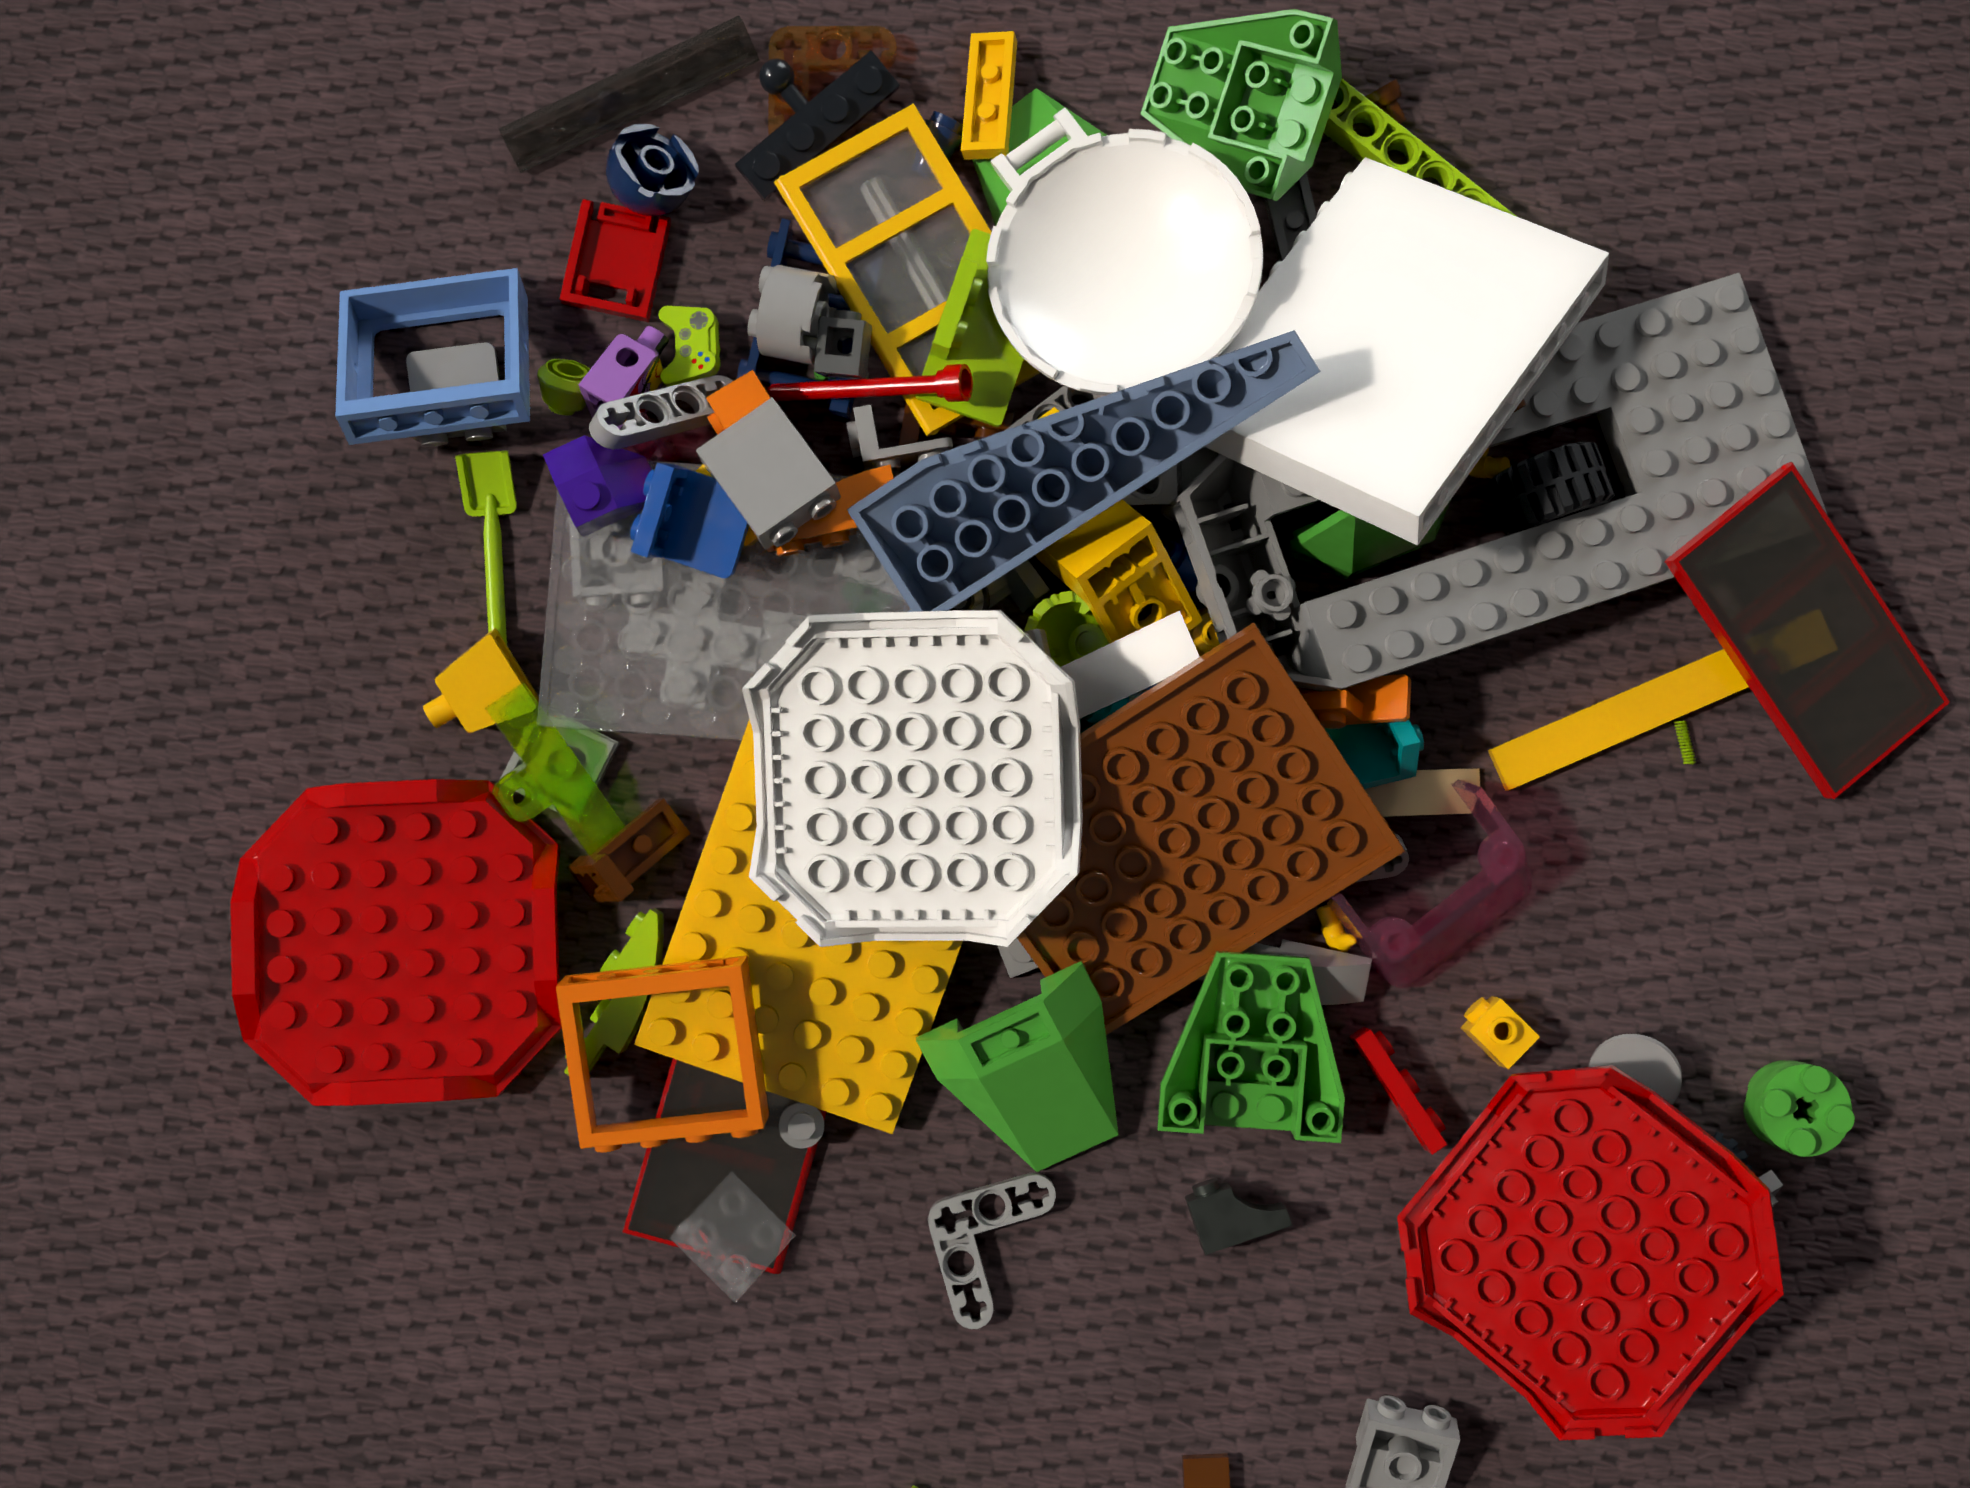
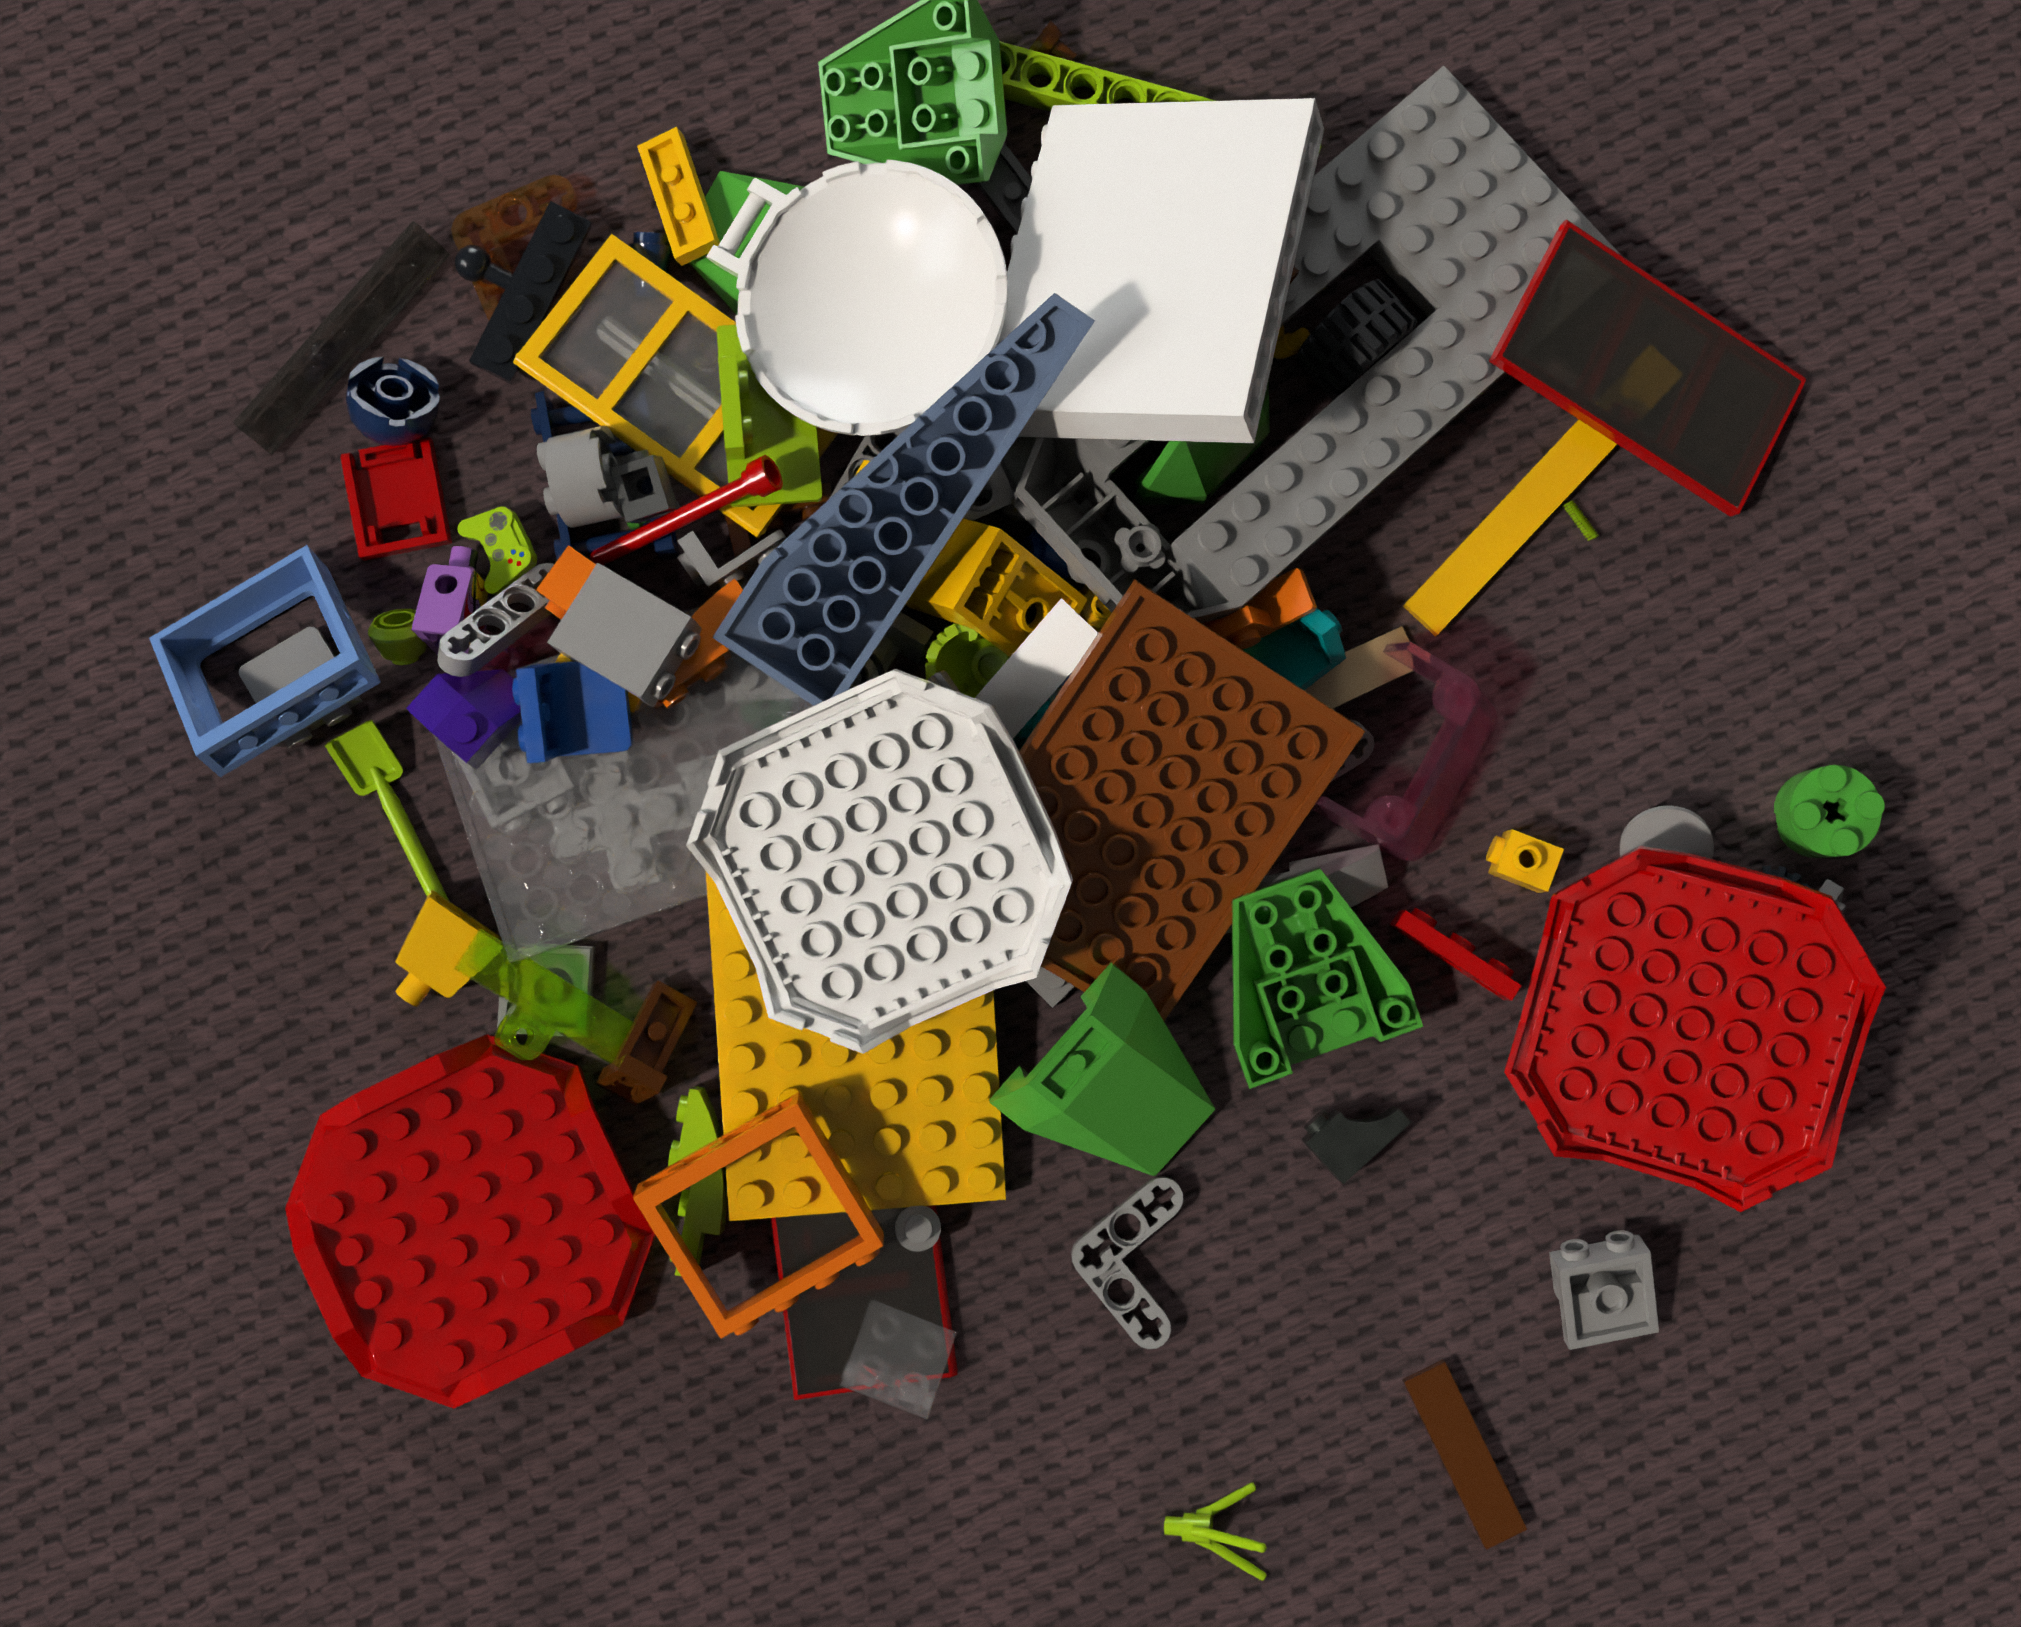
camera: 25 degrees left, 0 degrees up
(1333, 930) = (1333, 834): yellow animal -> none

